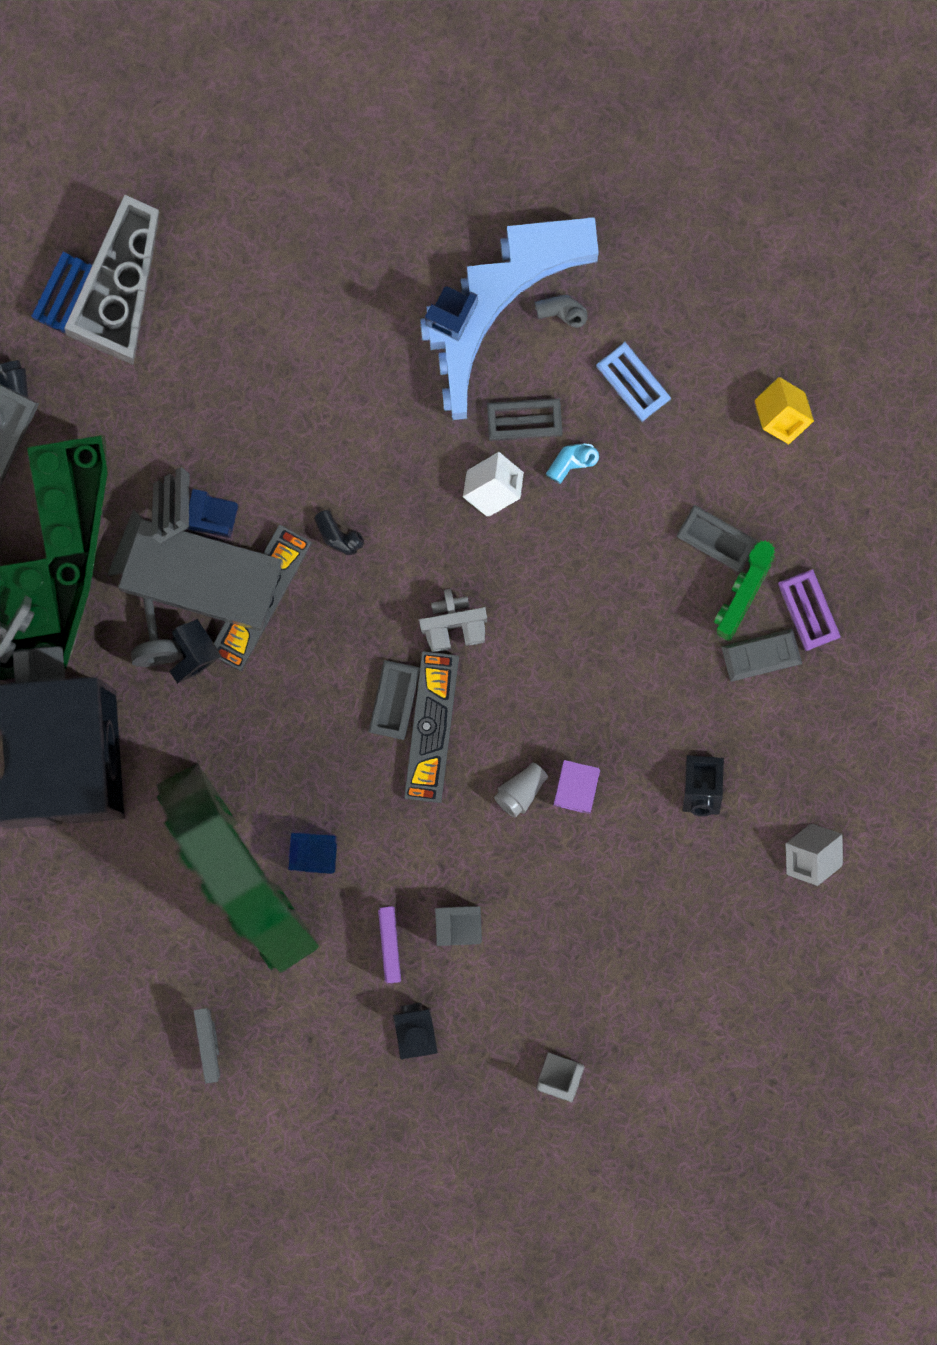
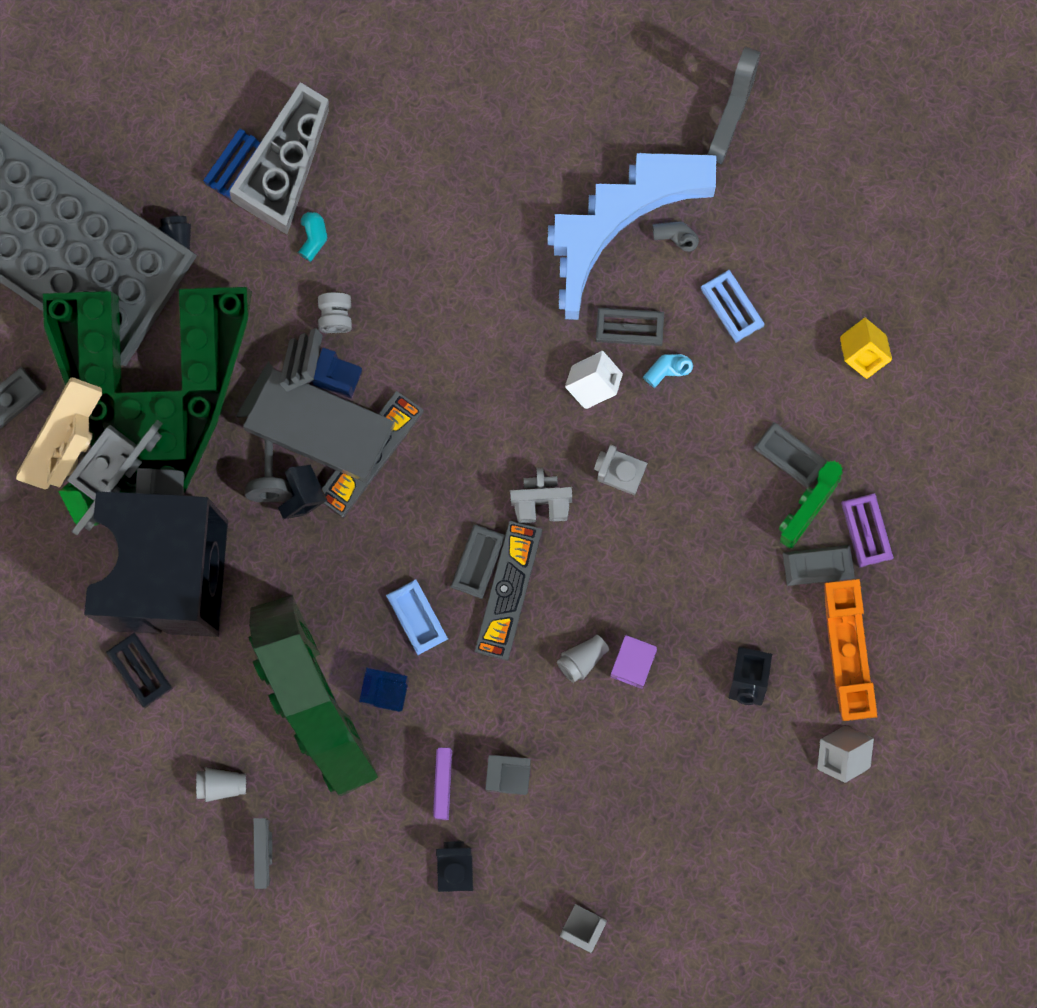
camera: 10 degrees right, 5 degrees down
(66, 890) = (155, 693): none -> black tile
(150, 977) = (219, 784): none -> light grey cone
(165, 360) = (316, 235): none -> teal arm
(199, 447) = (334, 313): none -> light grey wheel
(336, 539) = (445, 409): black arm -> none
(336, 769) = (417, 617): none -> light blue tile
(451, 312) = (576, 221): dark blue panel -> none
(534, 580) = (620, 470): none -> light grey bracket
(608, 158) = (741, 89): none -> dark grey beam
(805, 743) = (849, 650): none -> orange slope

